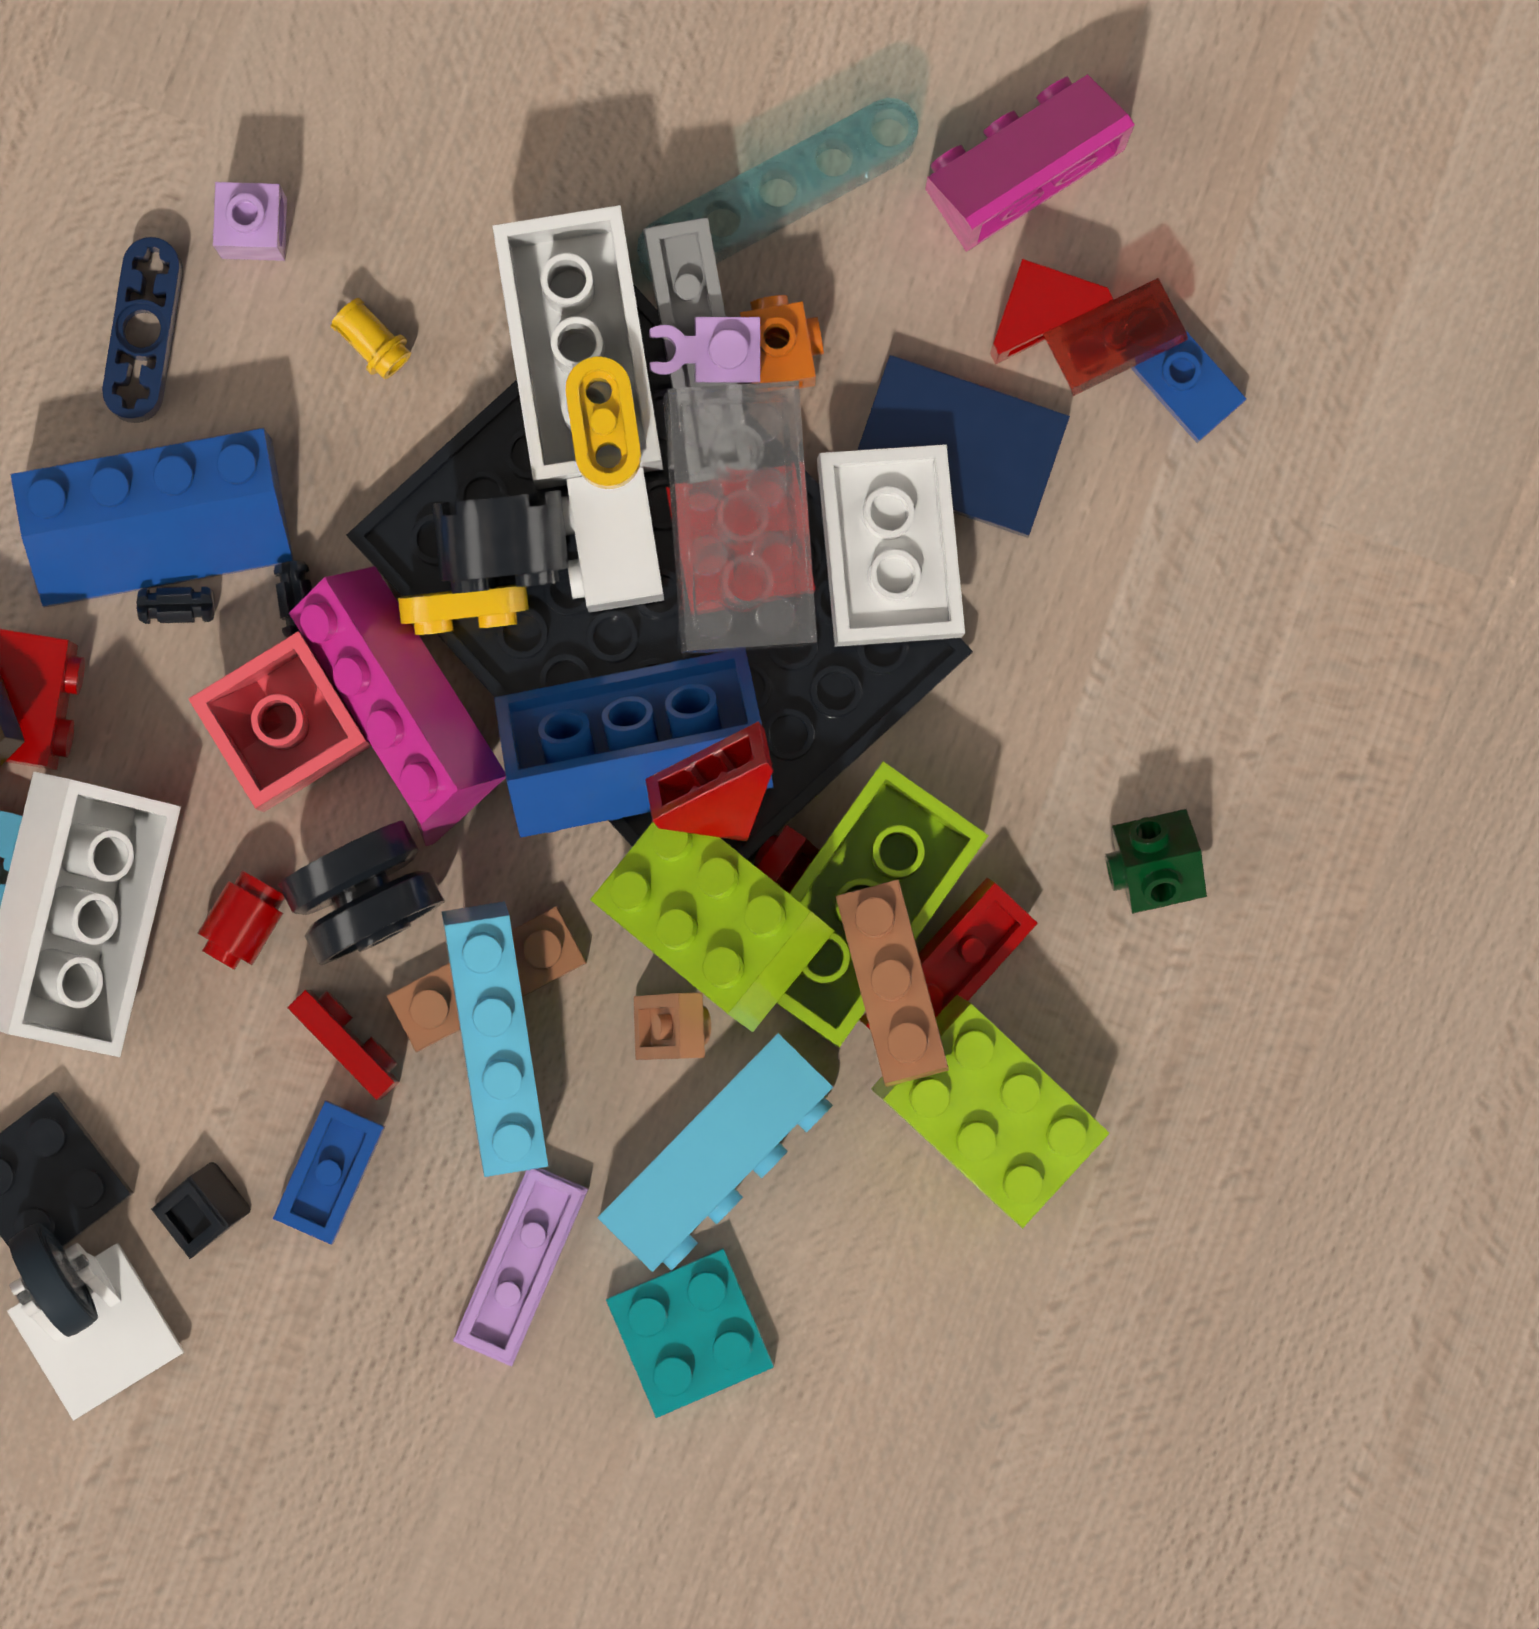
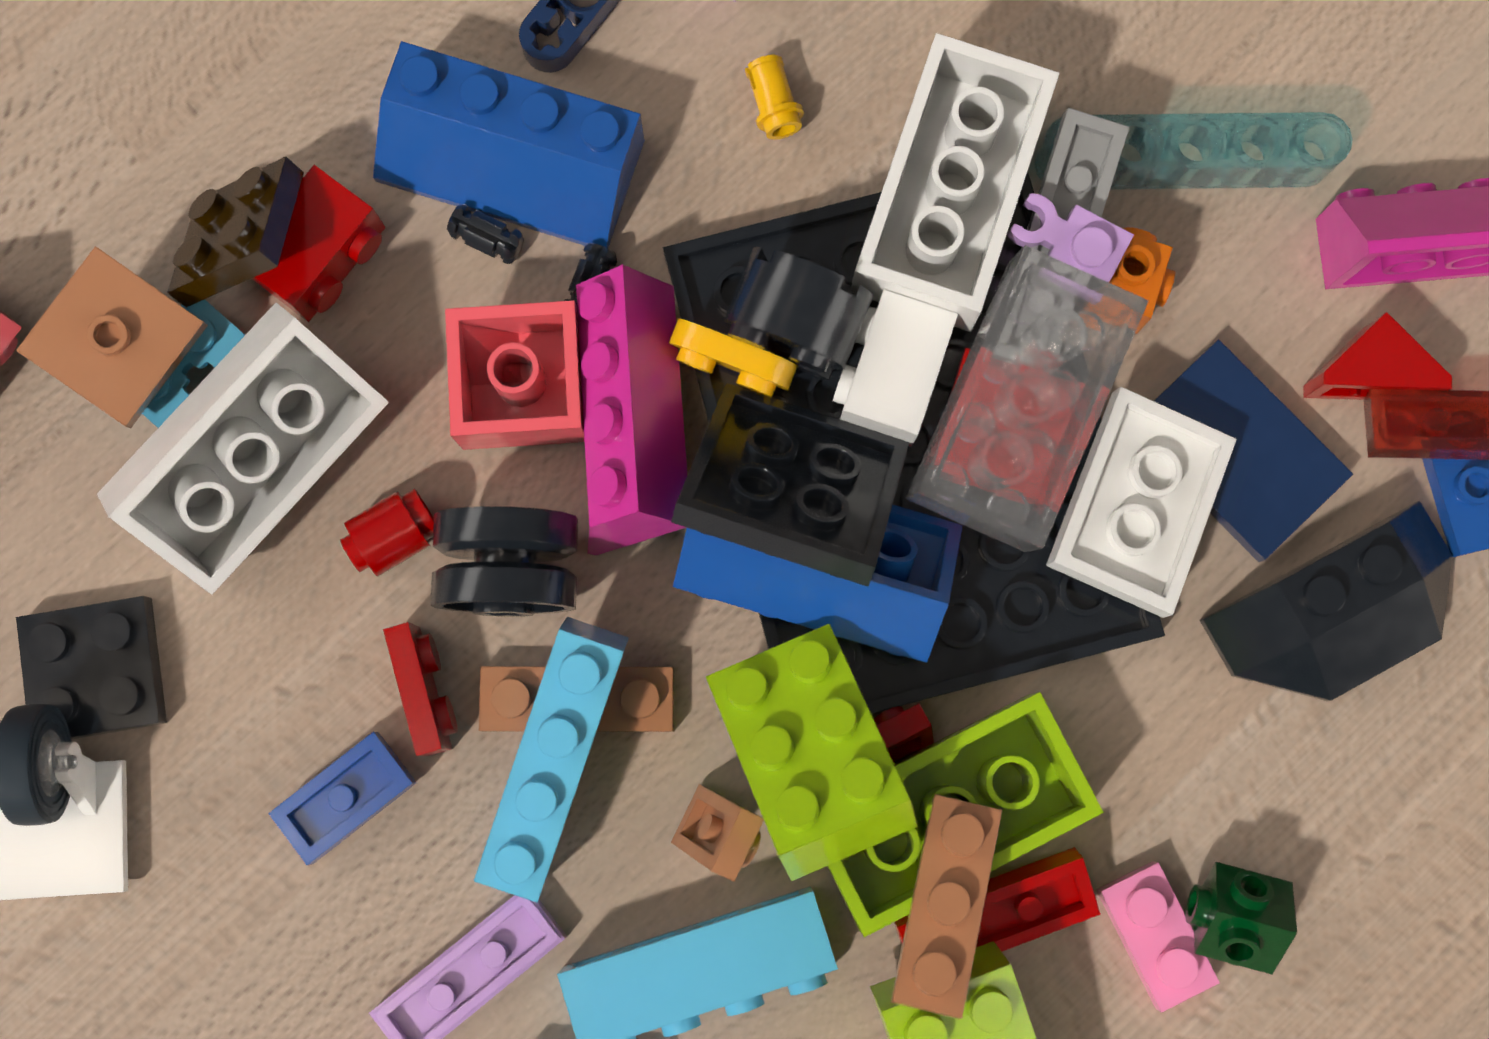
camera: 30 degrees right, 5 degrees down
(201, 1209) = (216, 769): black slope -> none
(577, 692) = (793, 484): none -> black plate
(604, 423) = (947, 251): yellow plate -> none
(715, 788) = (877, 635): red slope -> none
(1098, 916) = (1157, 936): none -> bright pink plate
(1120, 543) = (1341, 611): none -> black wedge

